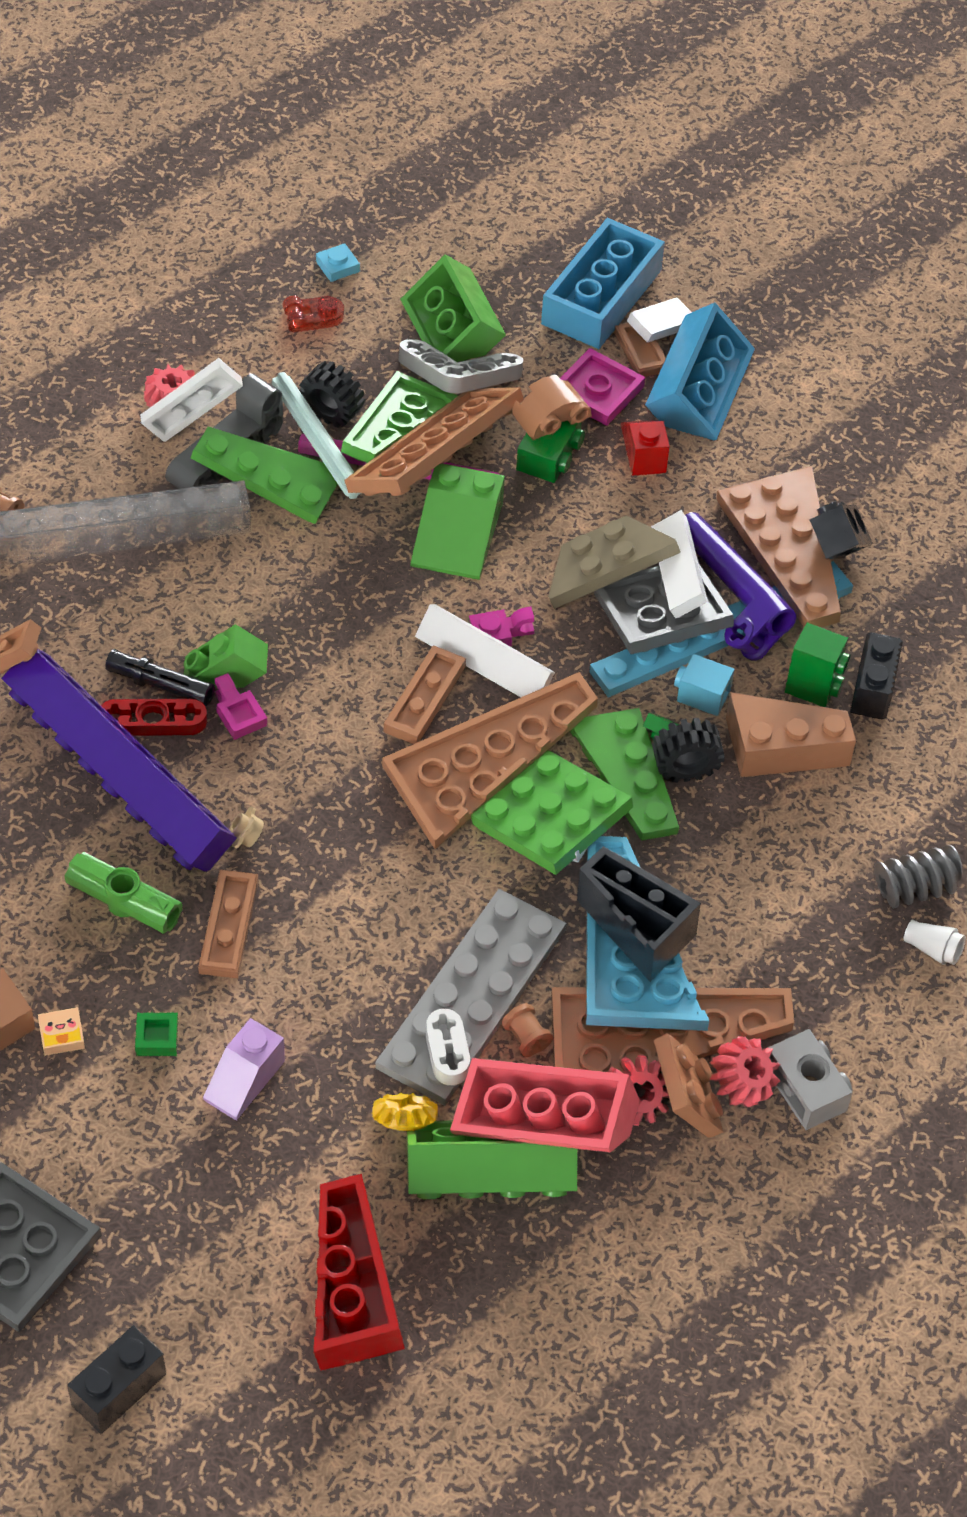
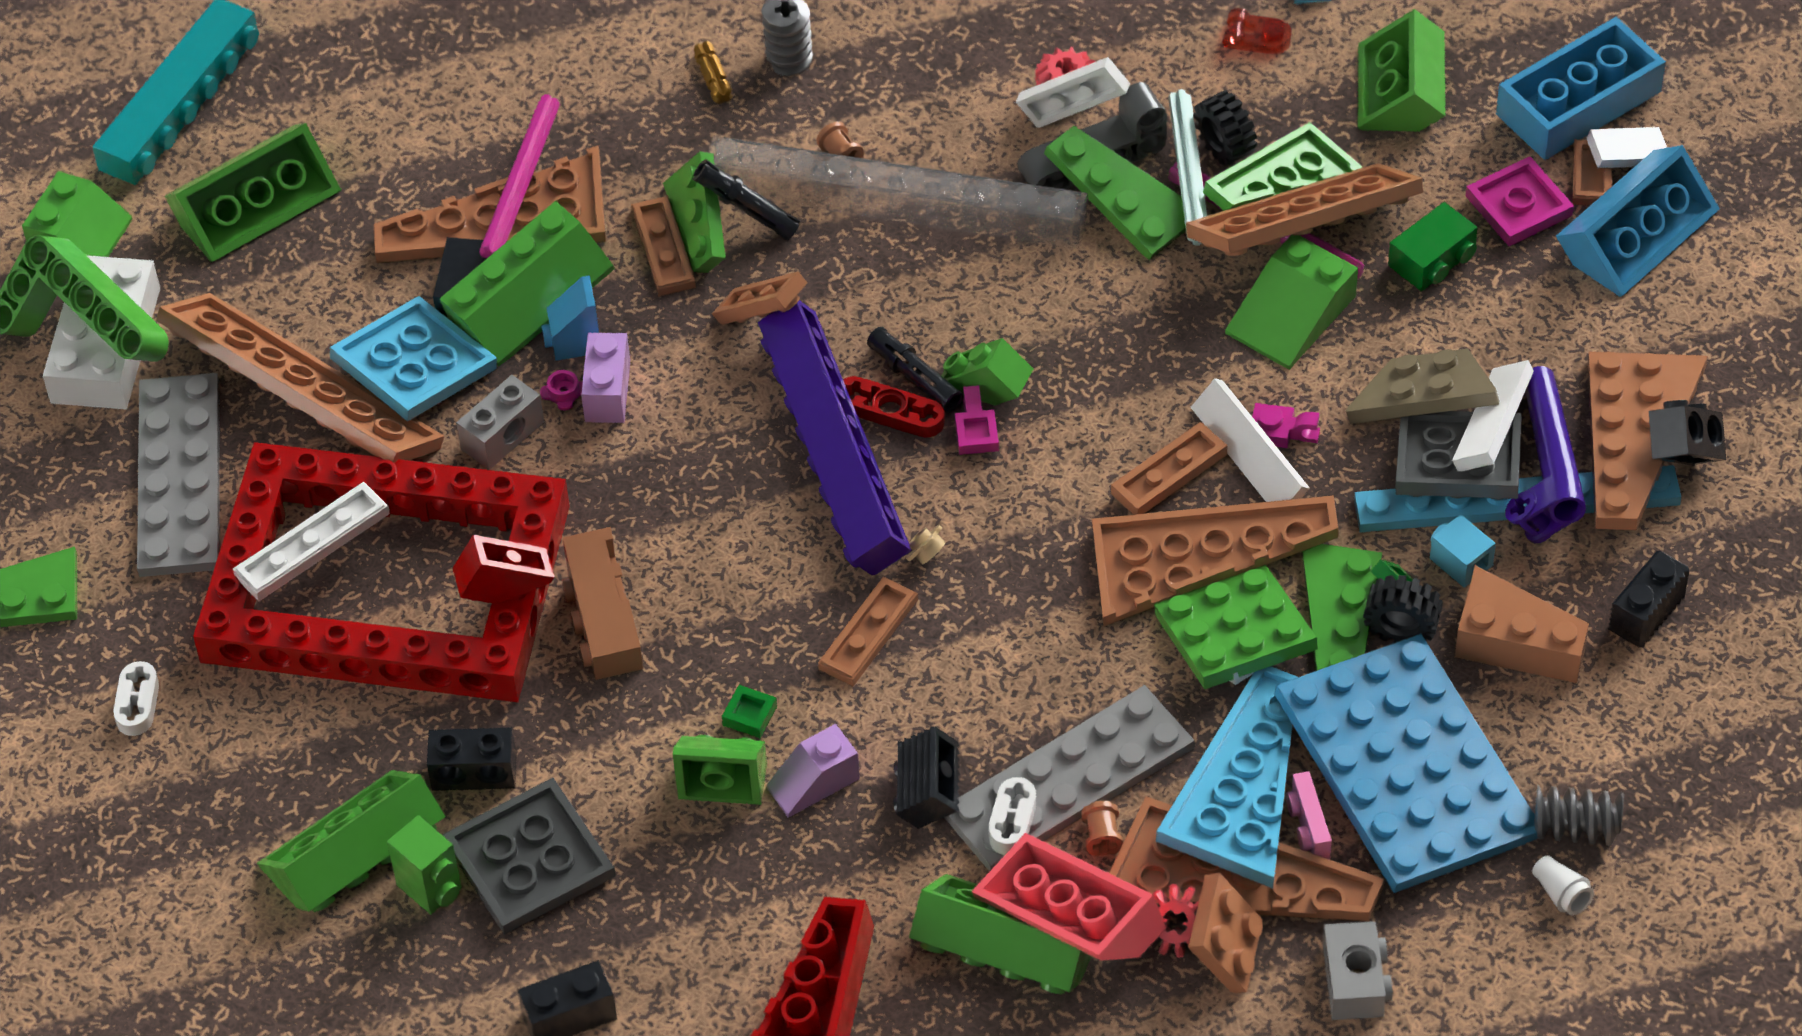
camera: 30 degrees right, 0 degrees up
(61, 1031) = (664, 679): light nougat tile -> none
(139, 902) = (768, 555): bright green piece -> none
(158, 1097) = (720, 769): none -> bright green slope
(352, 1039) = (927, 777): none -> black brick
(404, 1111) = (944, 862): yellow gear -> none
(460, 376) = (1370, 148): light grey beam -> none
(548, 406) = (1443, 205): nougat cylinder -> none
(637, 910) = (1255, 748): black wedge -> none
(646, 446) = (1535, 281): red slope -> none
(708, 965) = (1304, 803): none -> bright pink plate
(744, 1071) = (1274, 939): coral gear -> none
(759, 880) = (1407, 762): none -> dark azure plate
(817, 665) = (1584, 567): green brick -> none

